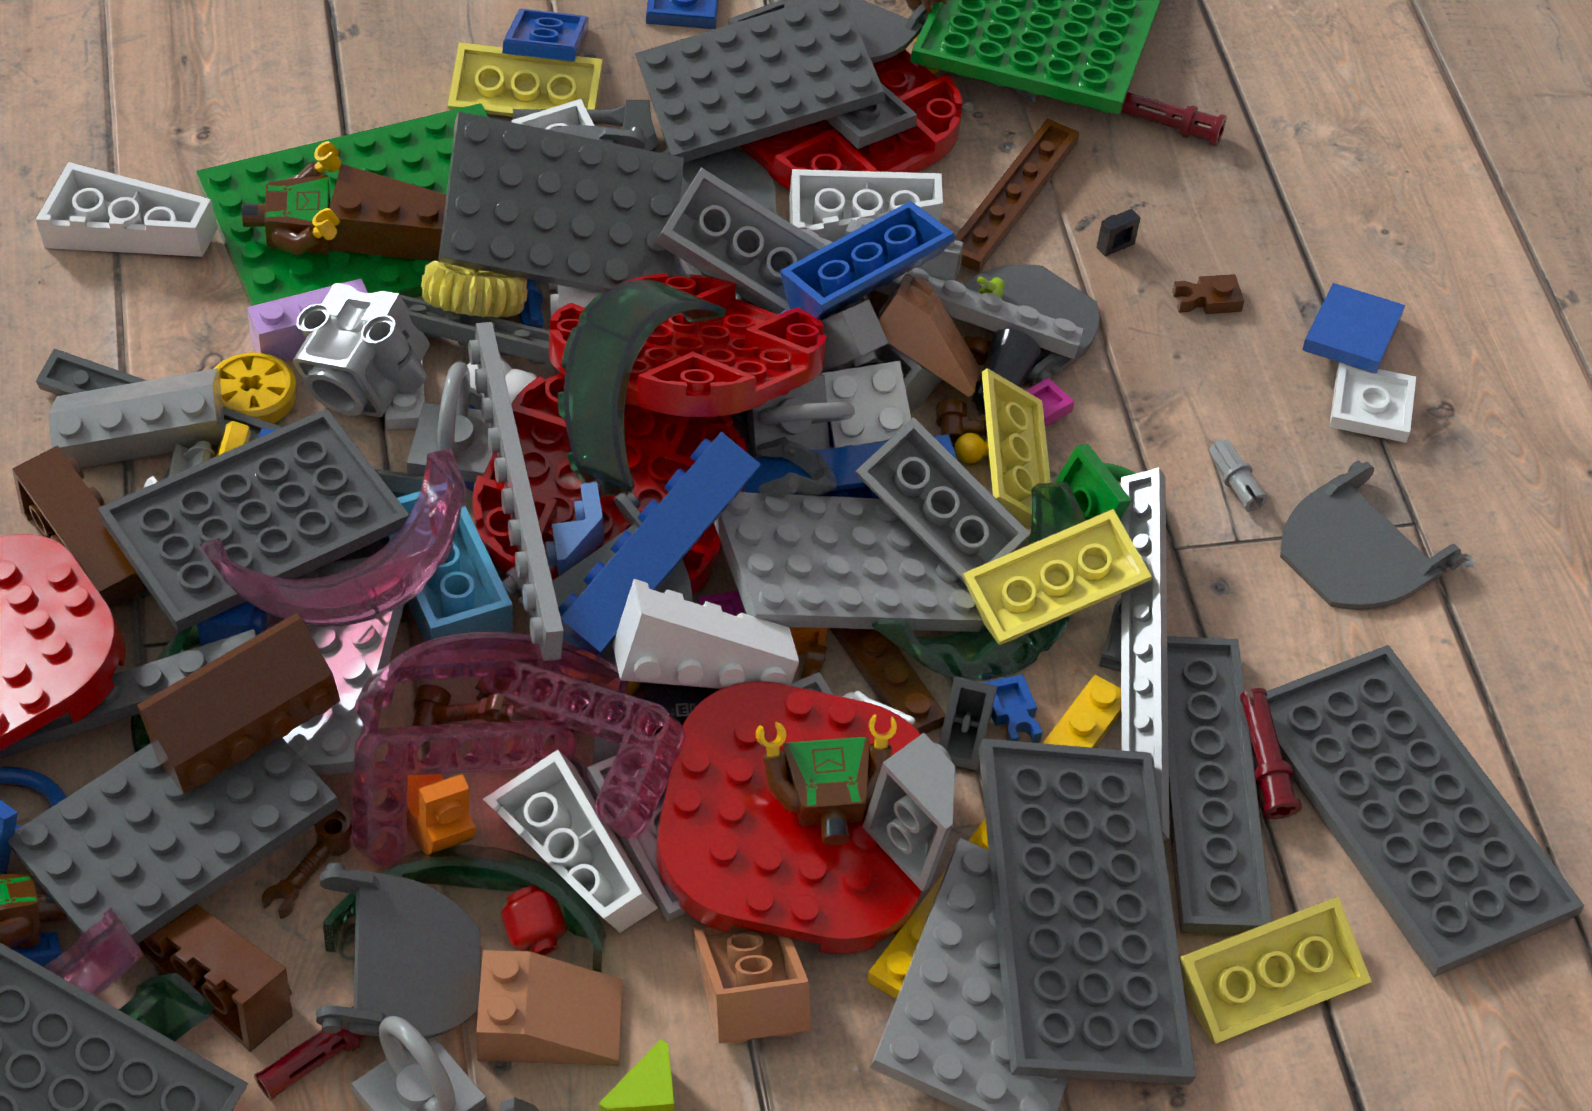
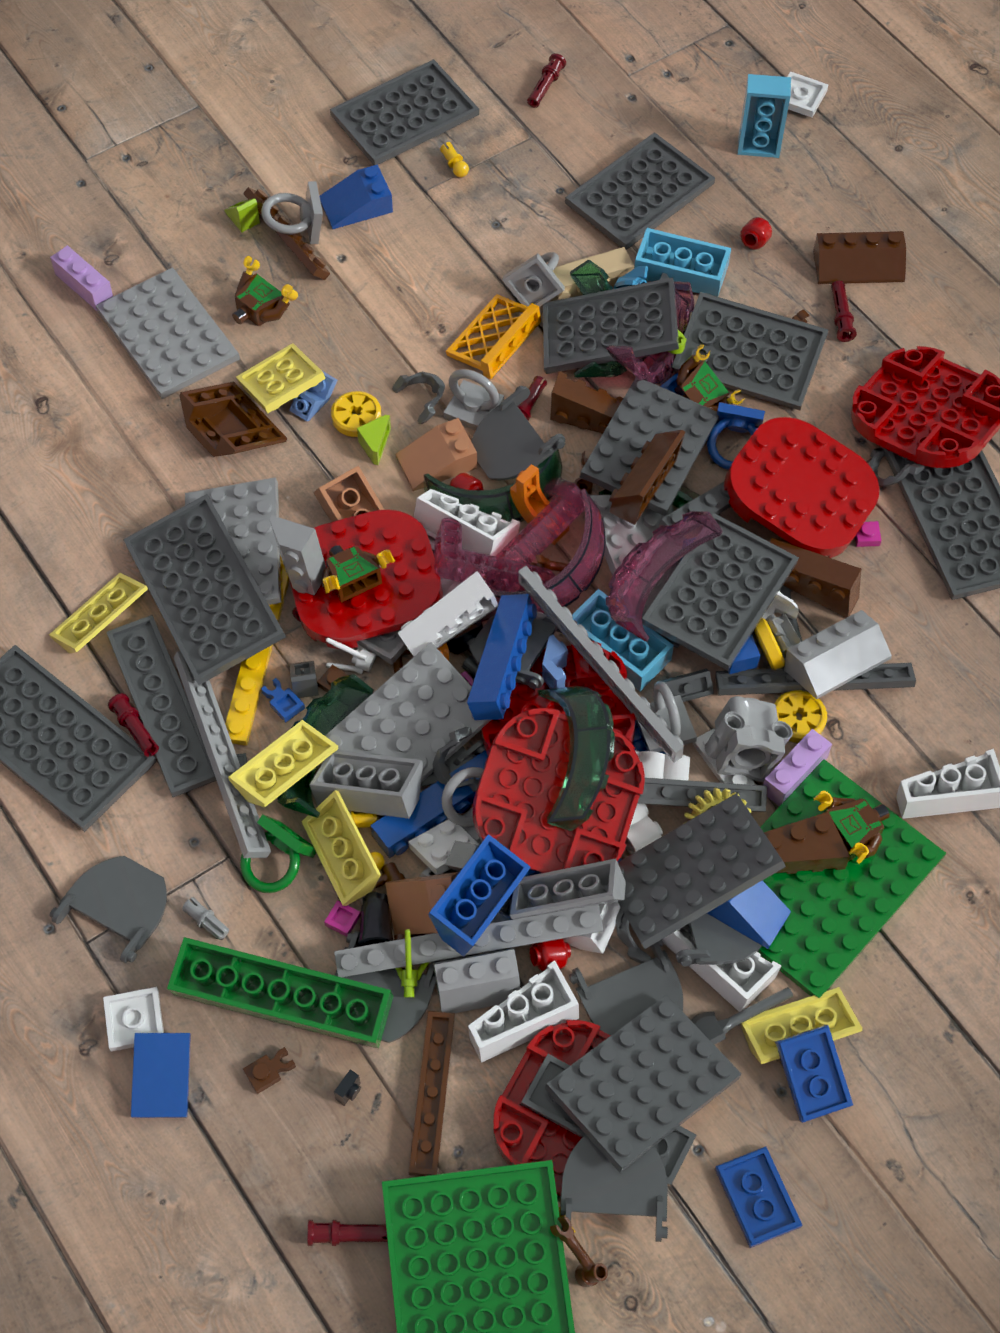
camera: 160 degrees right, 10 degrees up
(1170, 337) = (281, 992): none -> green brick

